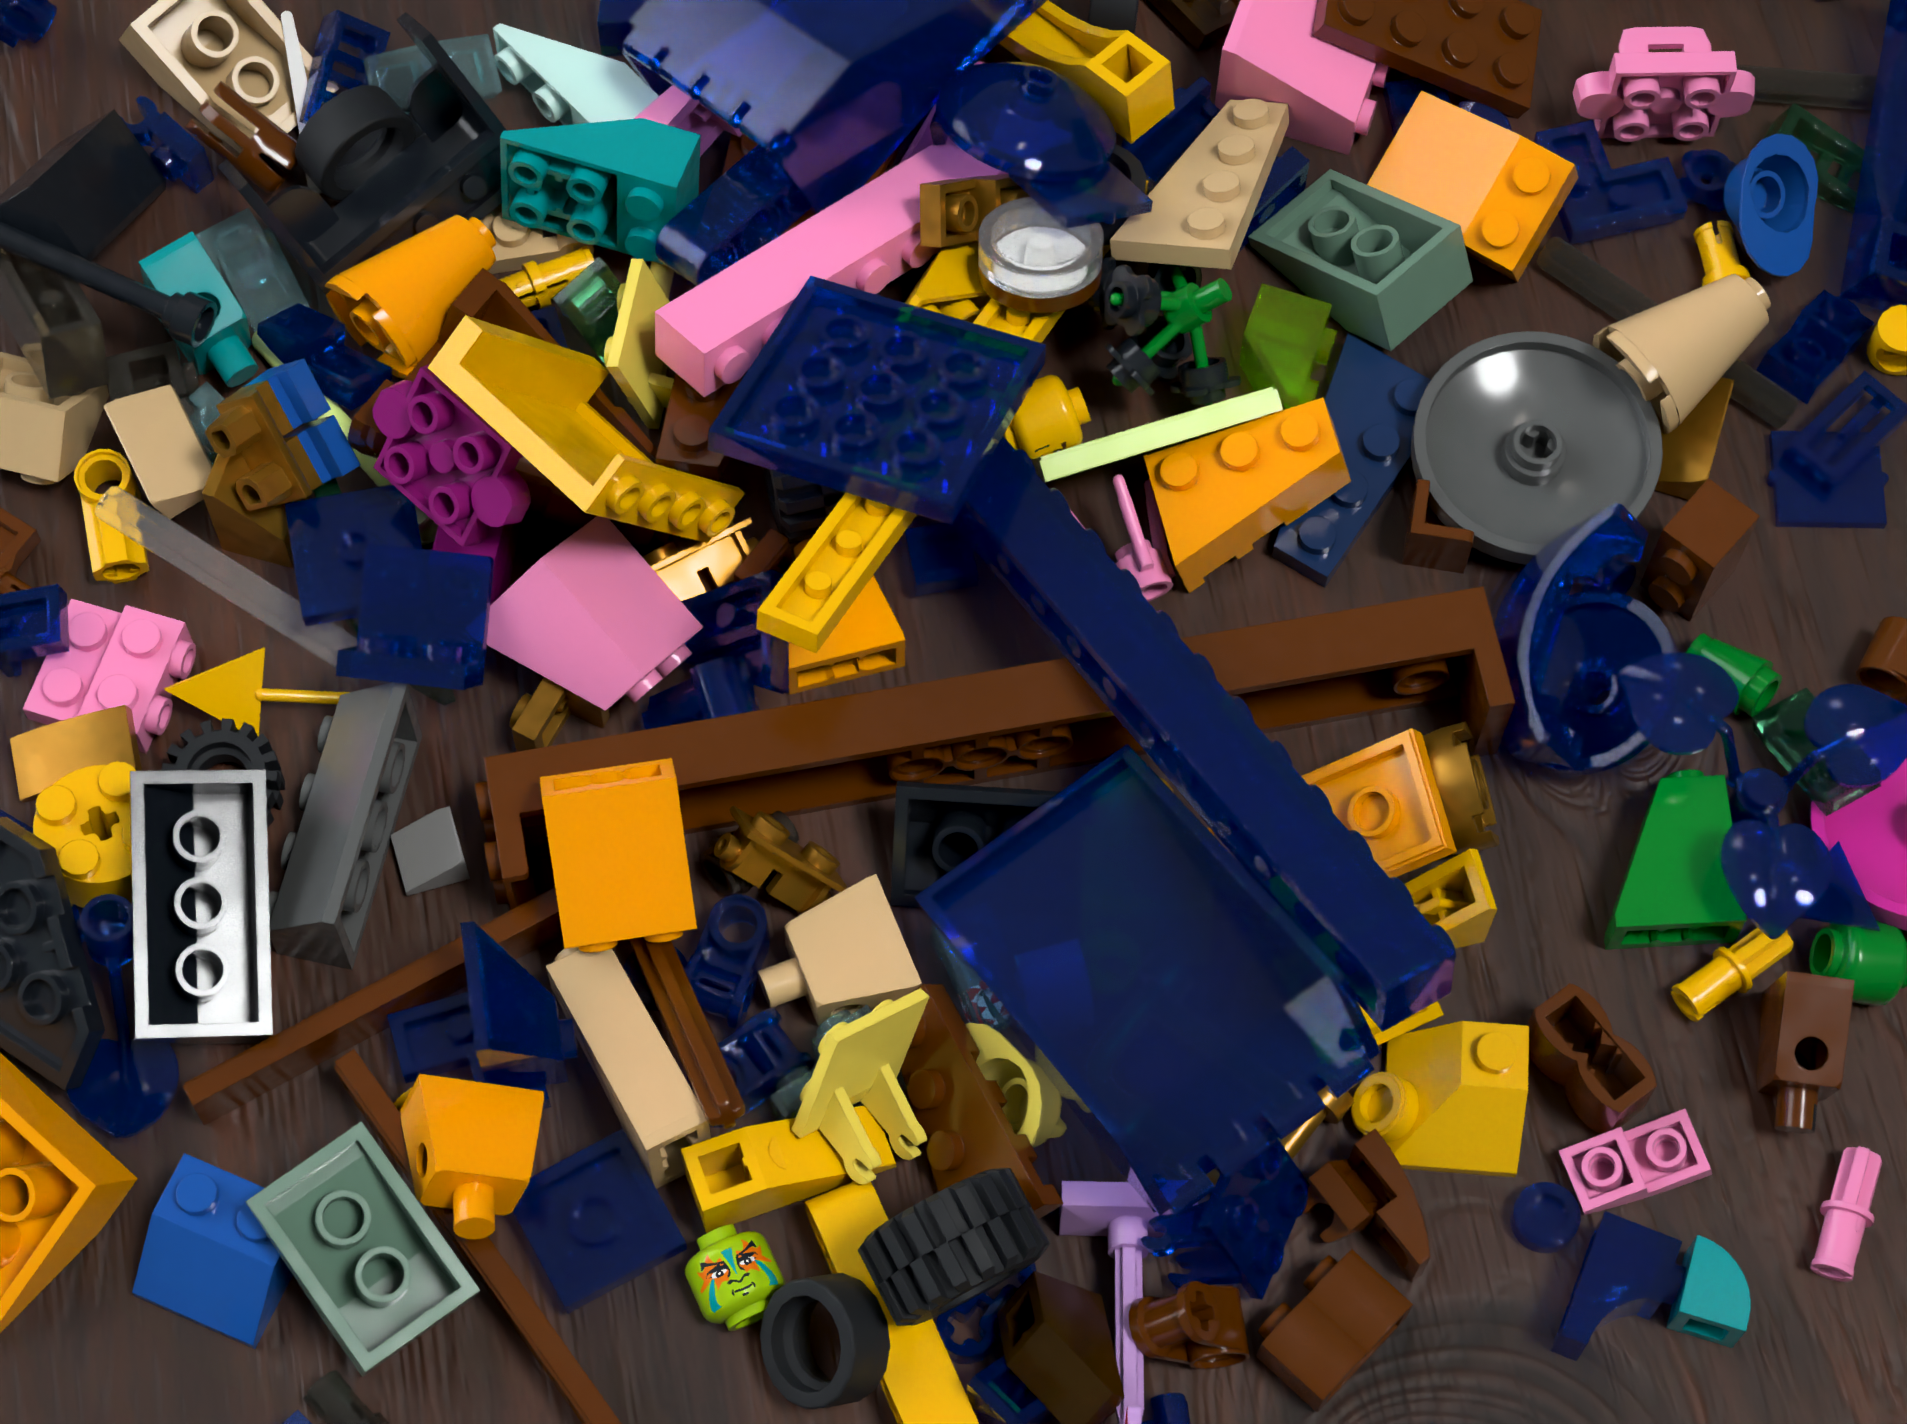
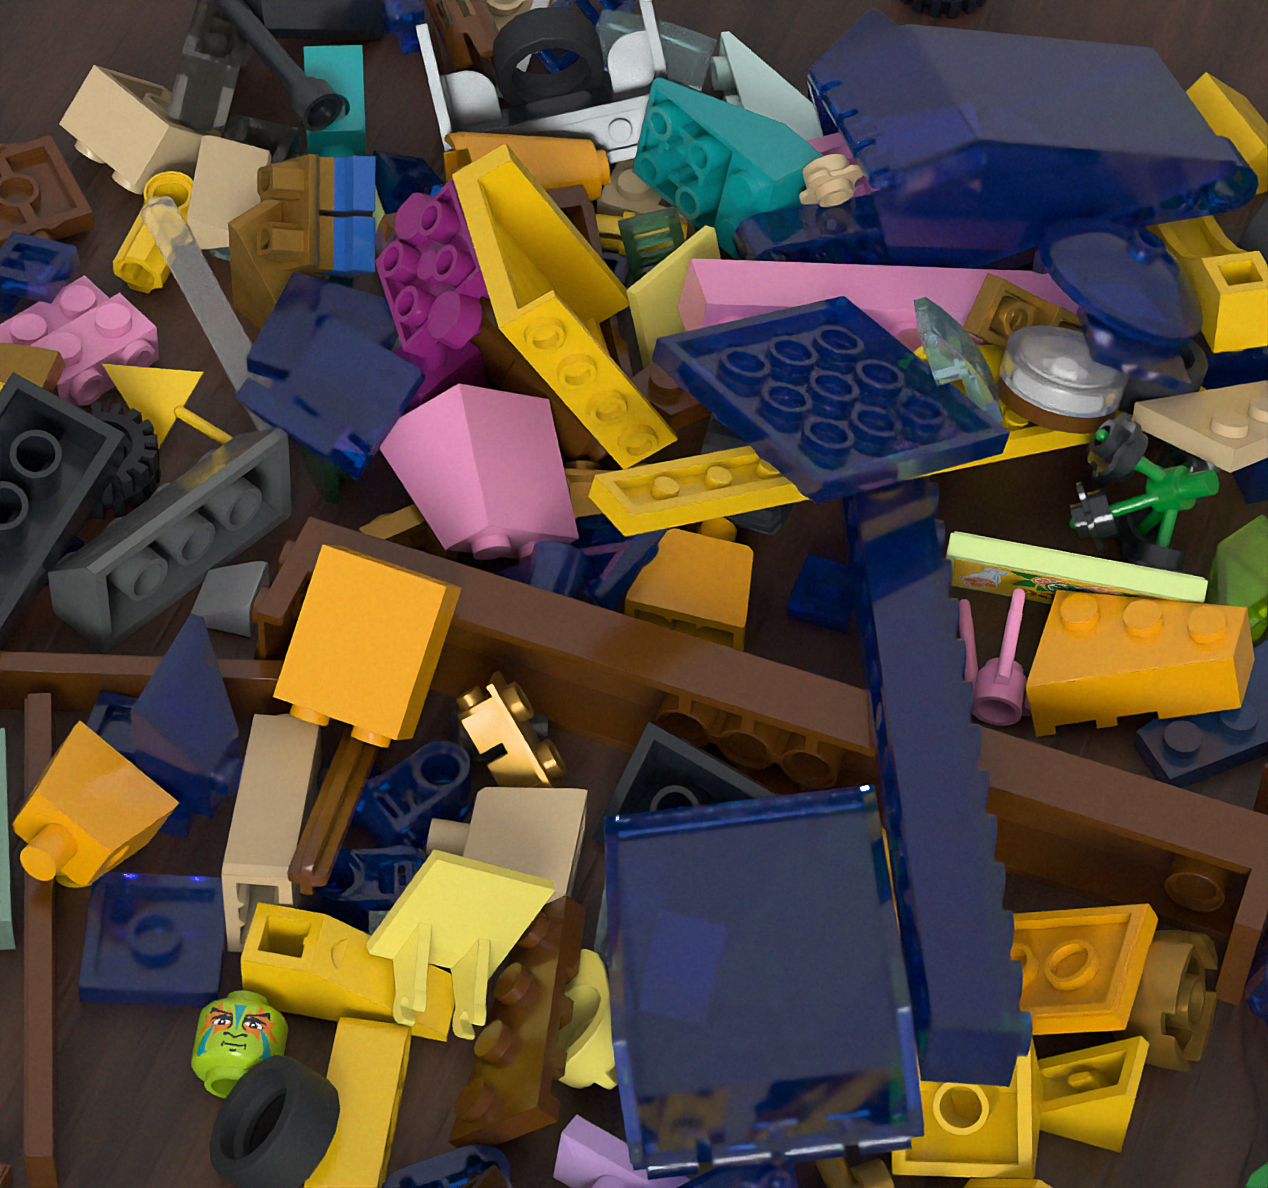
camera: 30 degrees right, 15 degrees down
(252, 266) = (404, 116): clear light blue slope -> none
(719, 158) = (829, 180): none -> tan plate
(953, 1246) = (429, 1091): black tyre -> none
(956, 293) = (956, 356): none -> clear light blue slope
(1048, 418) = (993, 516): yellow head -> none

